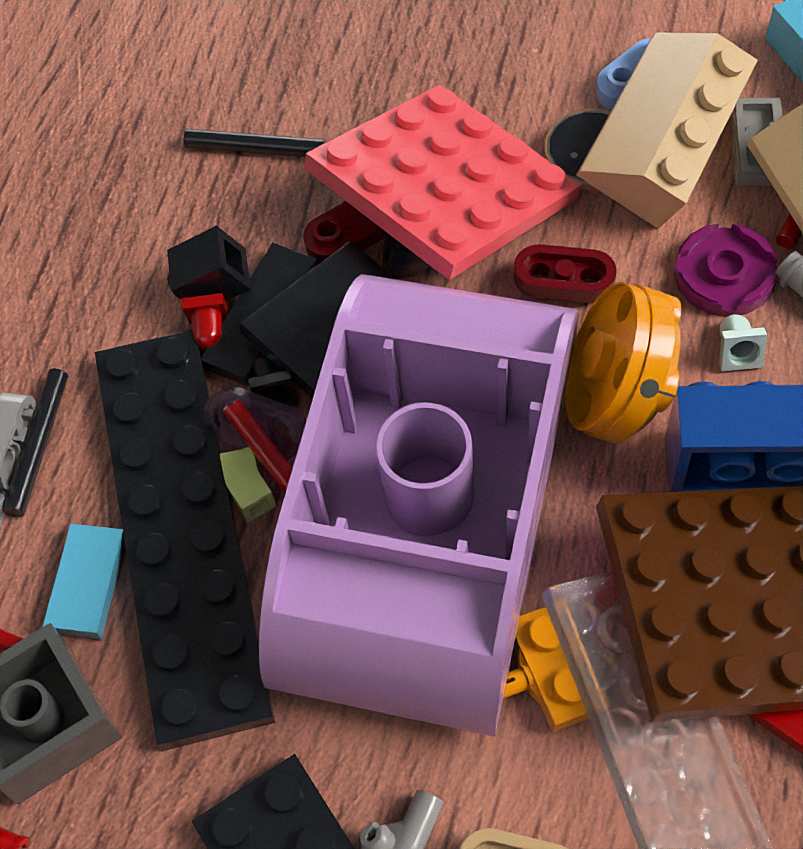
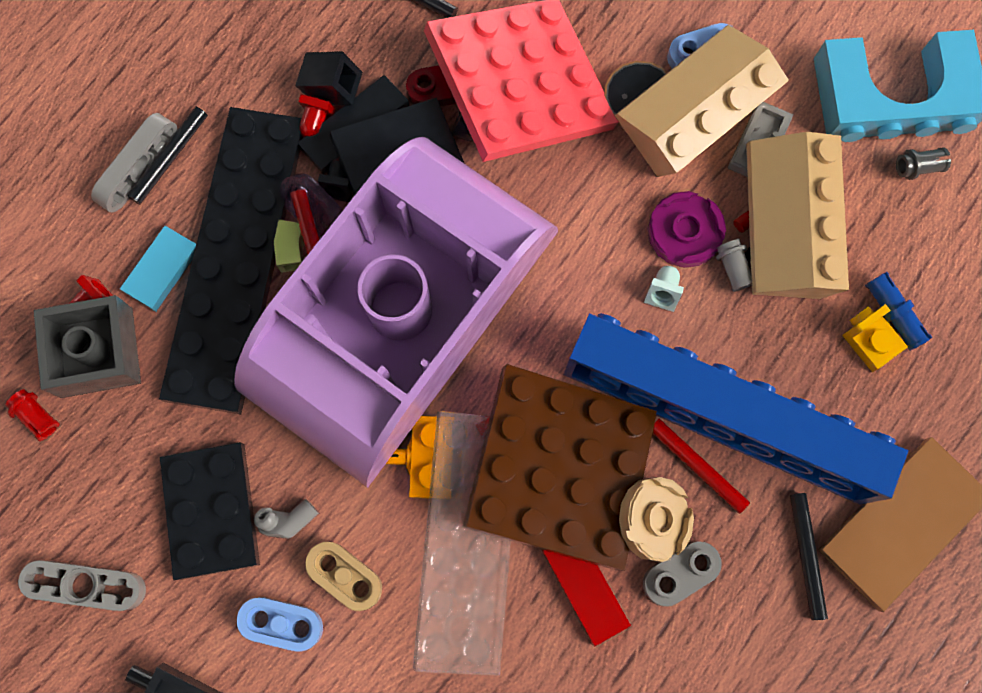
camera: 15 degrees right, 15 degrees up
(564, 272) = (574, 184): dark red plate -> none
(624, 362) = (570, 274): light orange piece -> none

